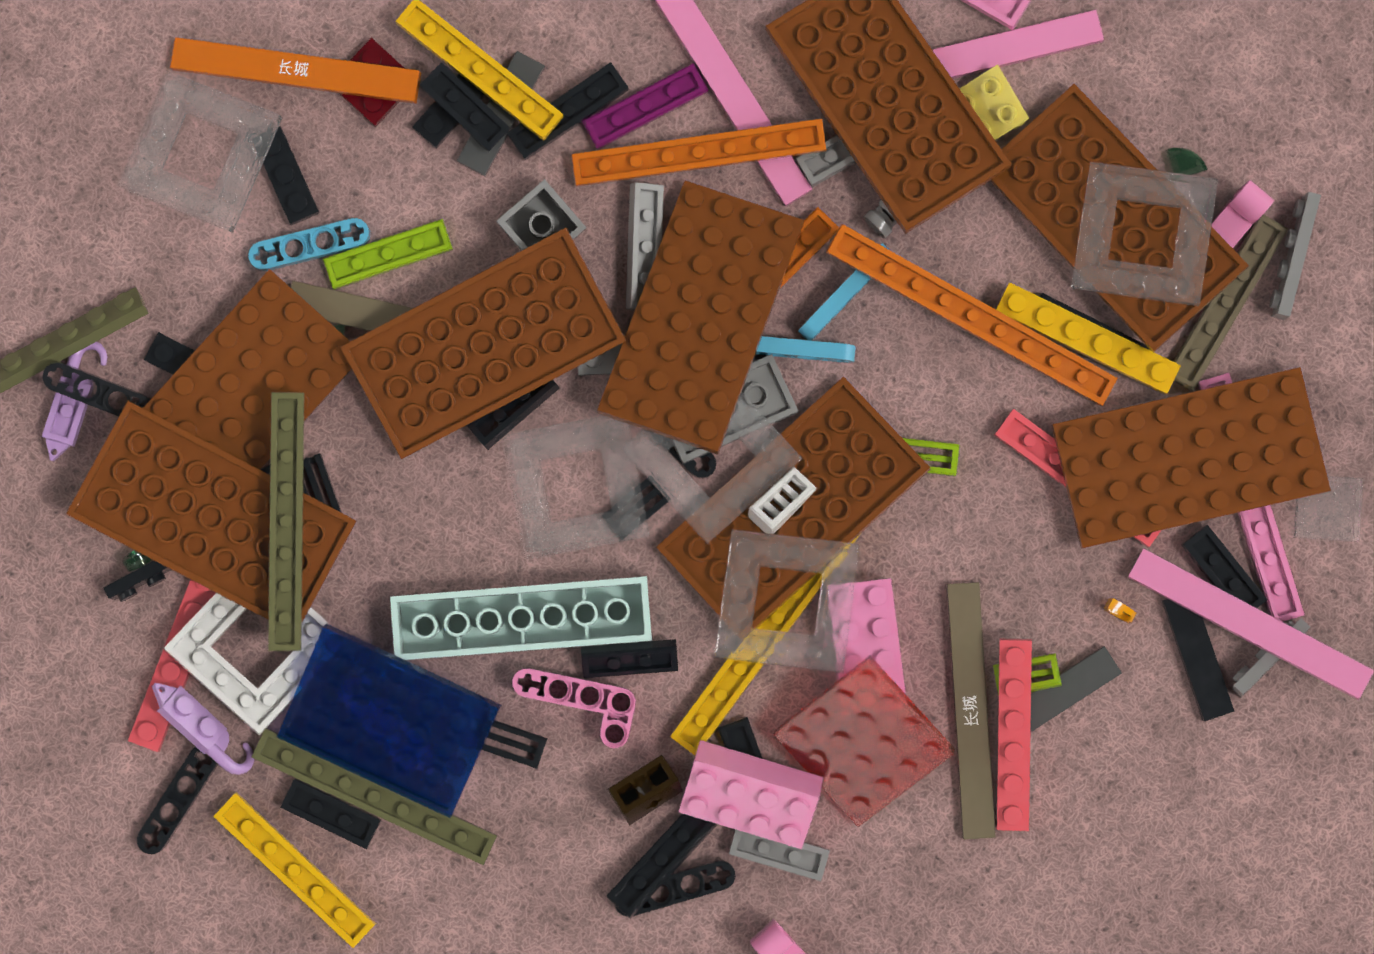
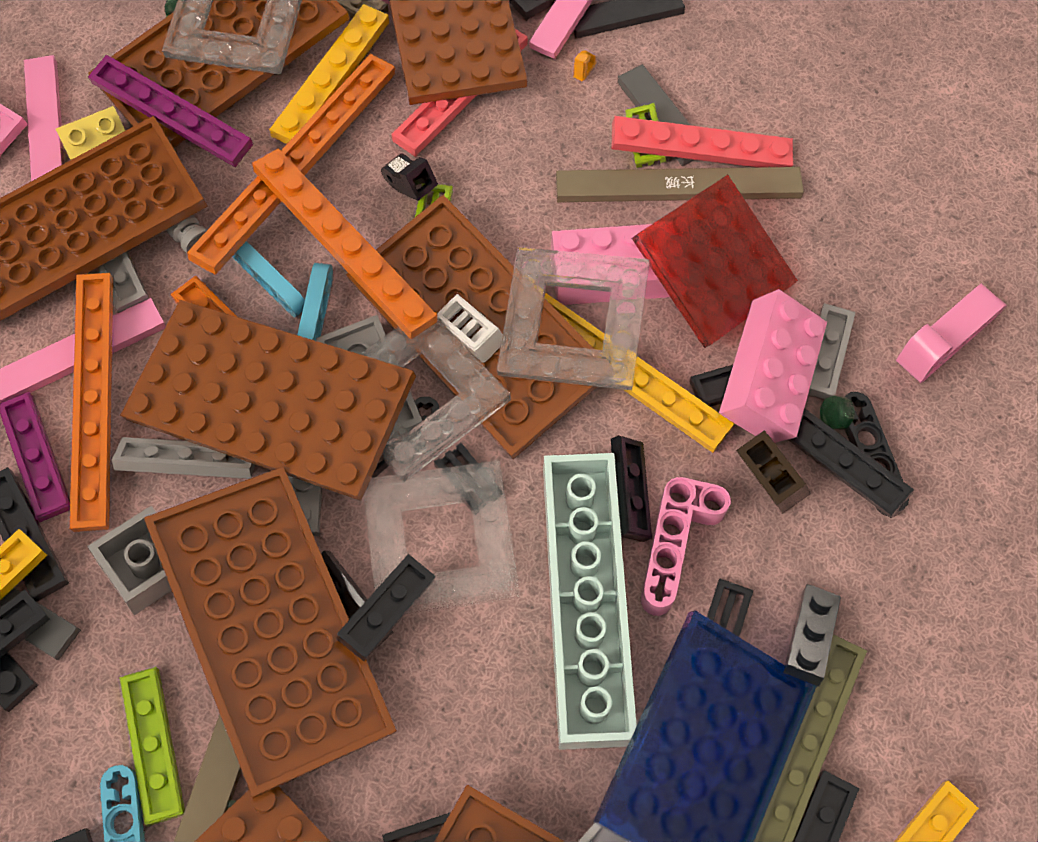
camera: 85 degrees left, 20 degrees down
(494, 817) = (812, 635): none -> plate
(502, 443) = (385, 607): none -> black plate
(712, 855) = (837, 412): none -> clear green tile
(865, 372) = (345, 244): none -> orange plate
(959, 430) = (405, 174): none -> black leg
(1022, 178) = (171, 111): none -> magenta plate

